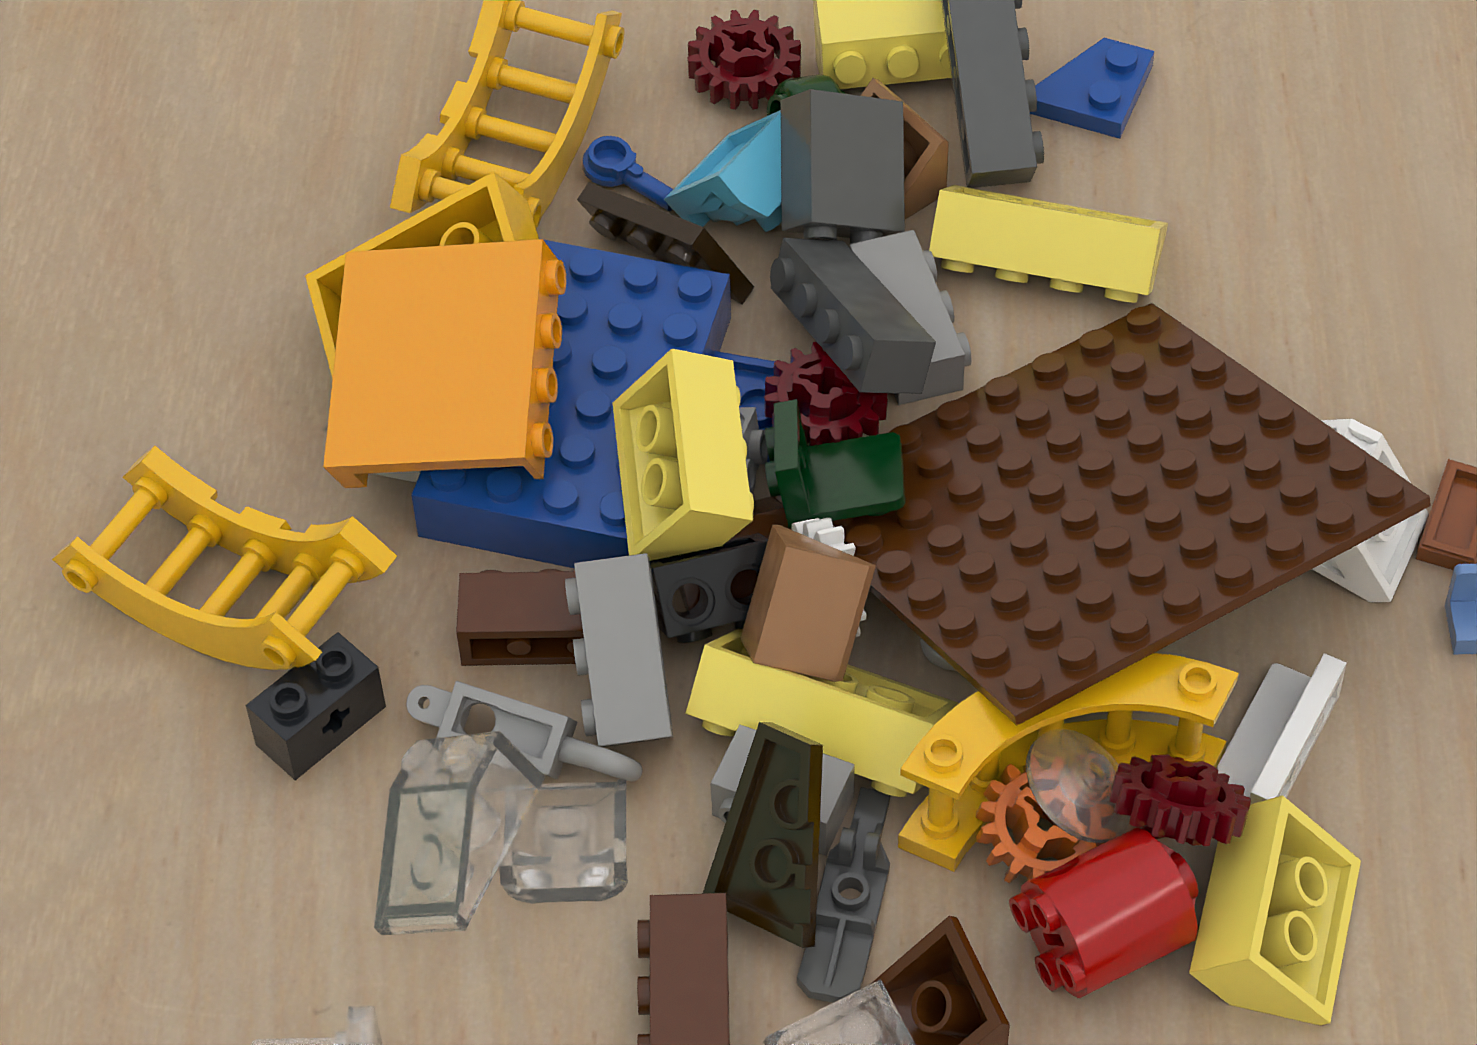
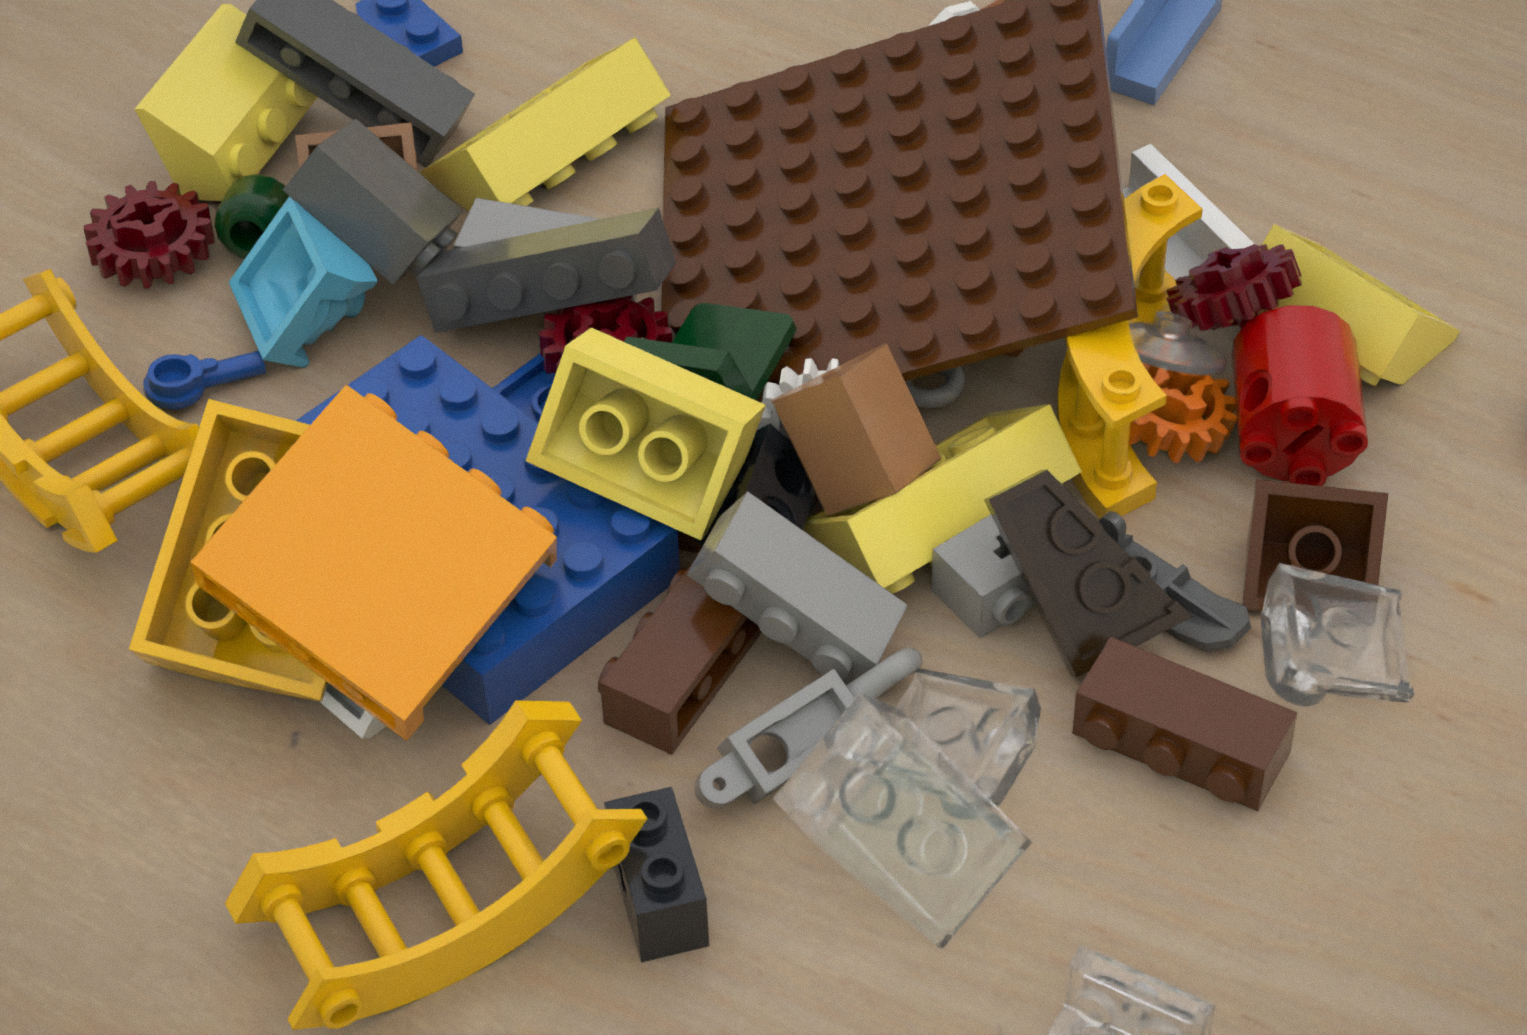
camera: 60 degrees left, 5 degrees down
(660, 235) = (314, 369): dark brown wing -> none

